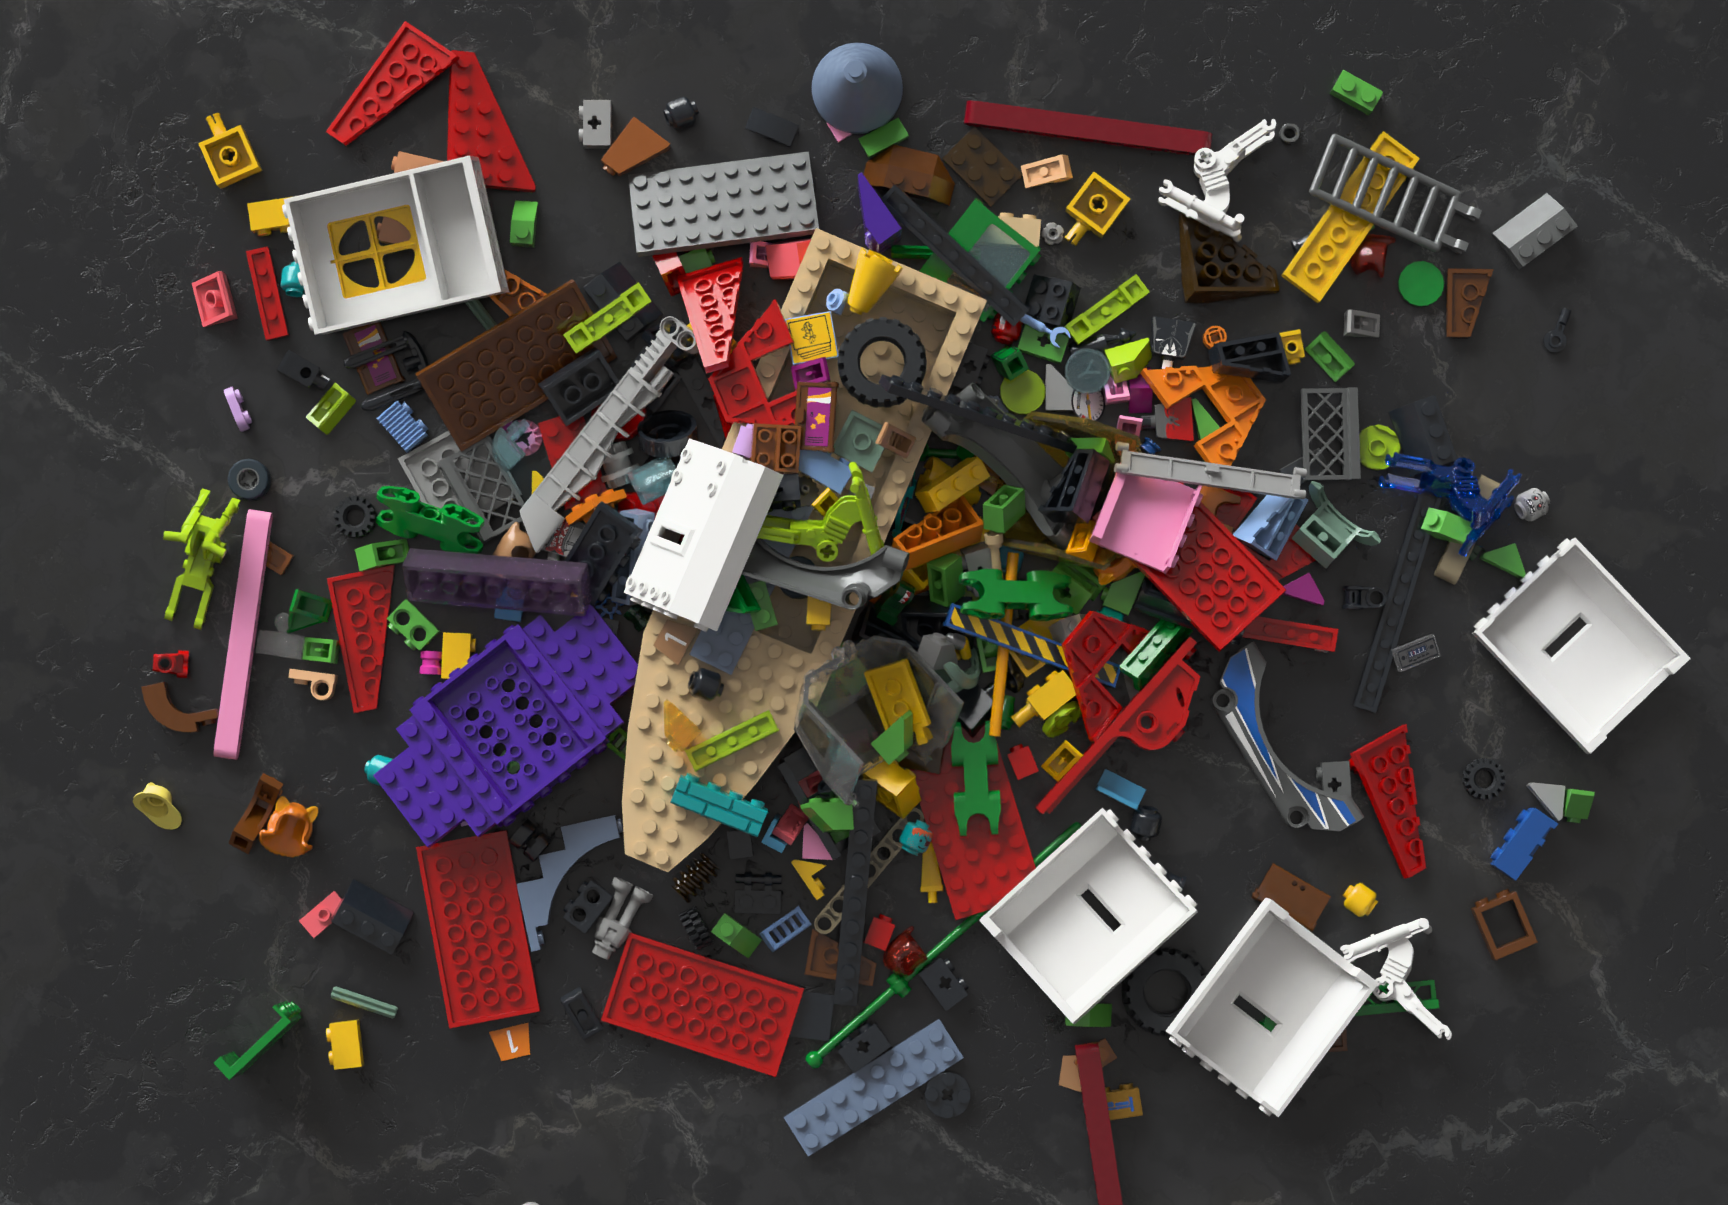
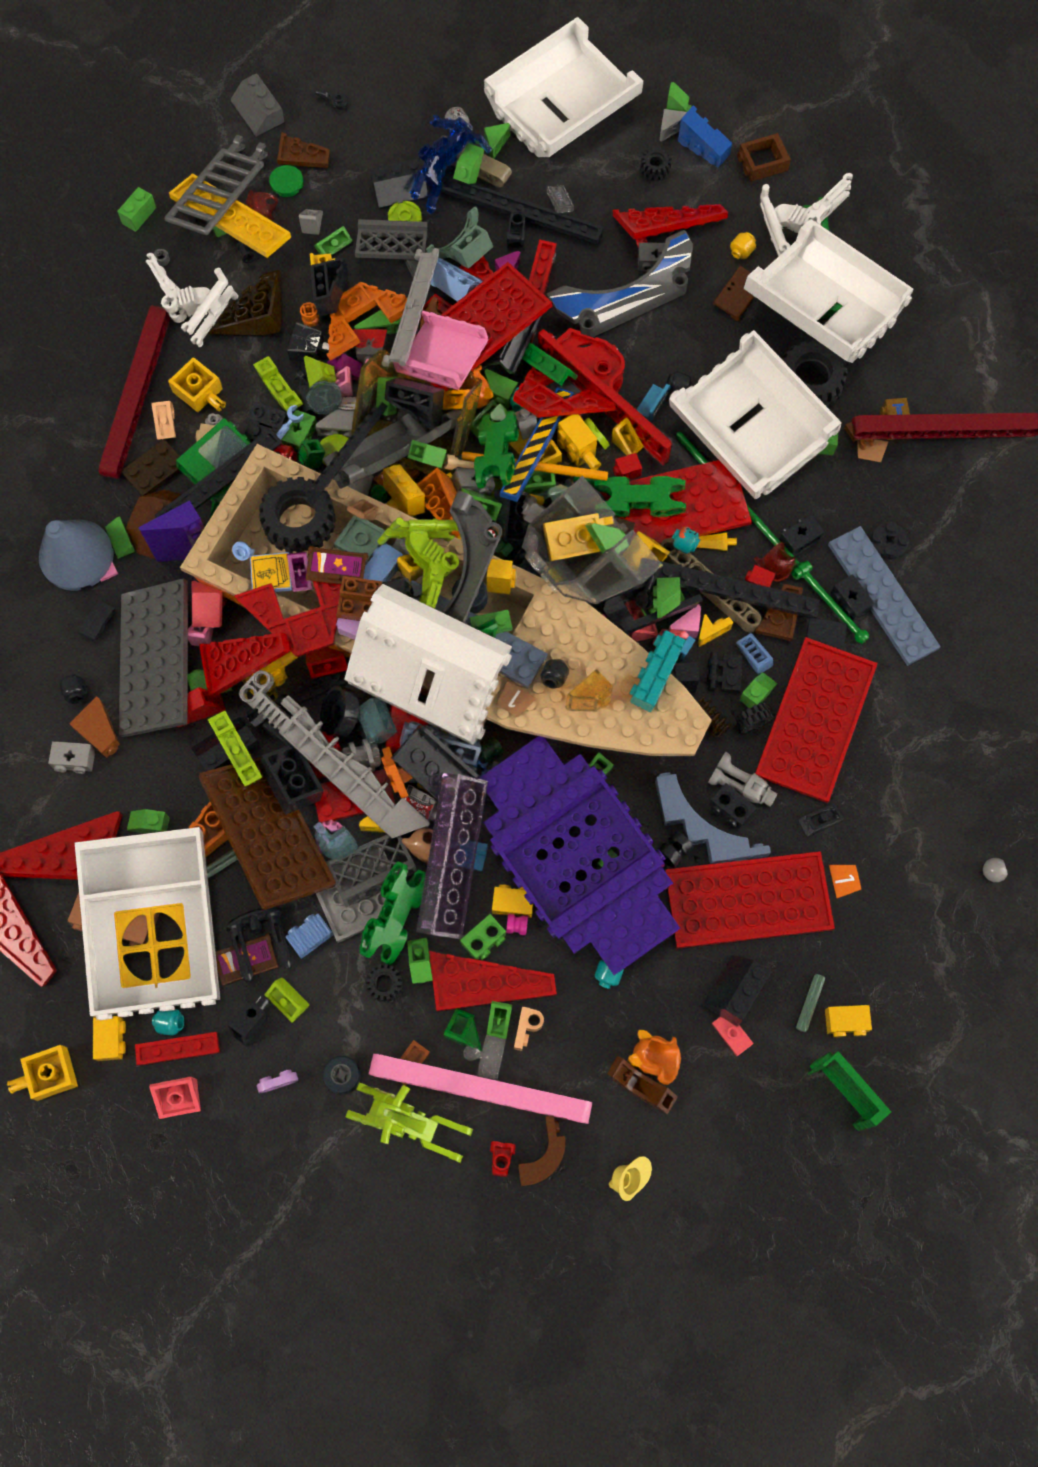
camera: 85 degrees left, 15 degrees down
(732, 740) = (602, 656): lime tile -> none
(871, 280) = (227, 519): yellow cone -> none

